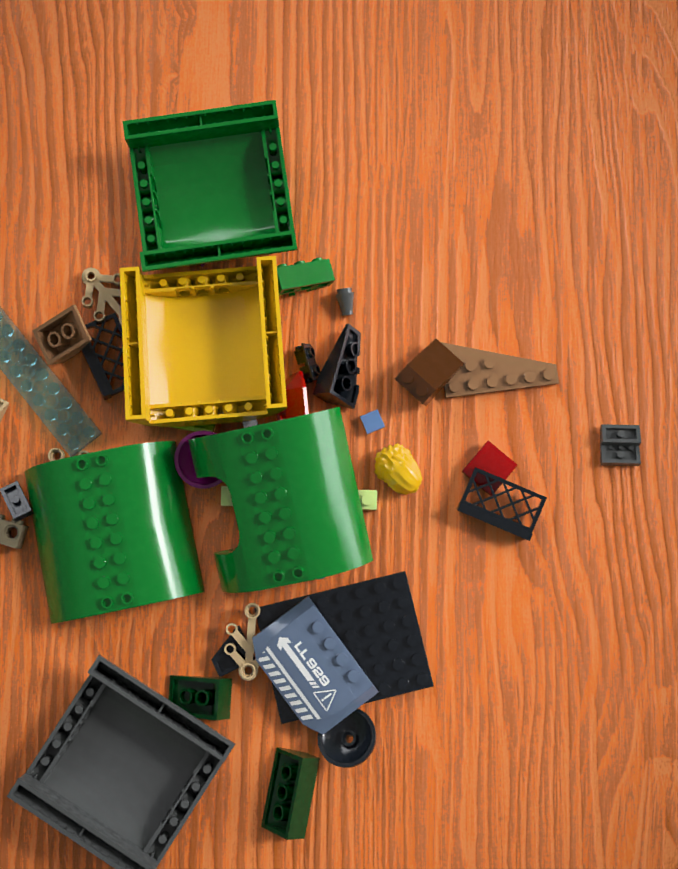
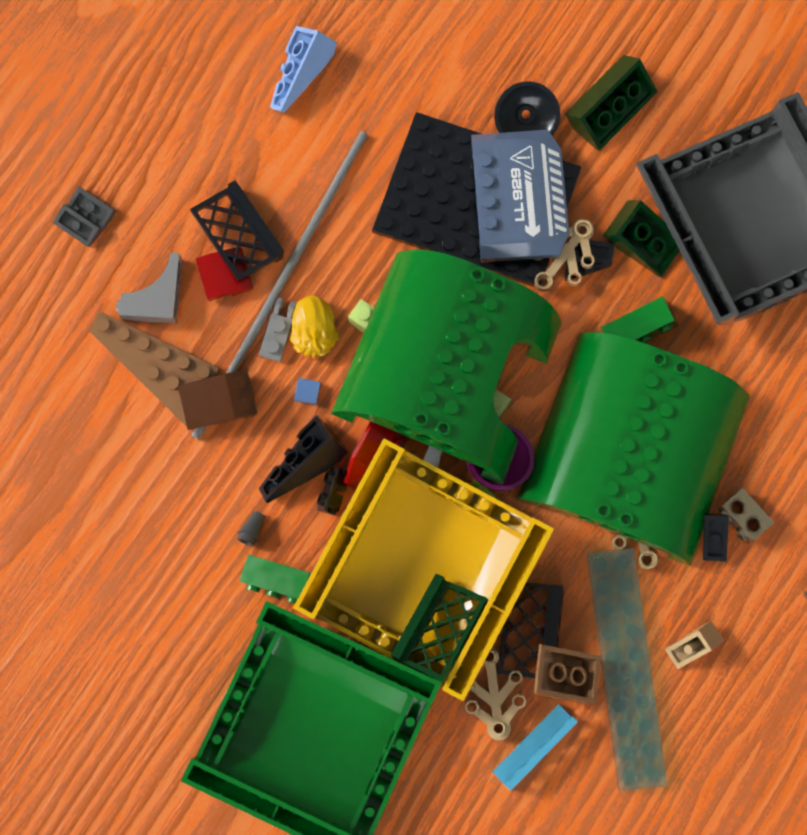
camera: 145 degrees left, 5 degrees down
(58, 278) = (534, 747): none -> medium azure fence
(160, 625) = (644, 322): none -> green wedge
(184, 310) = (420, 623): none -> dark green fence
(422, 450) = (277, 332): none -> light grey hinge
(448, 516) = (248, 341): none -> light grey piece
(521, 417) = (156, 302): none -> light grey arch
(543, 674) = (307, 56): none -> light blue wedge

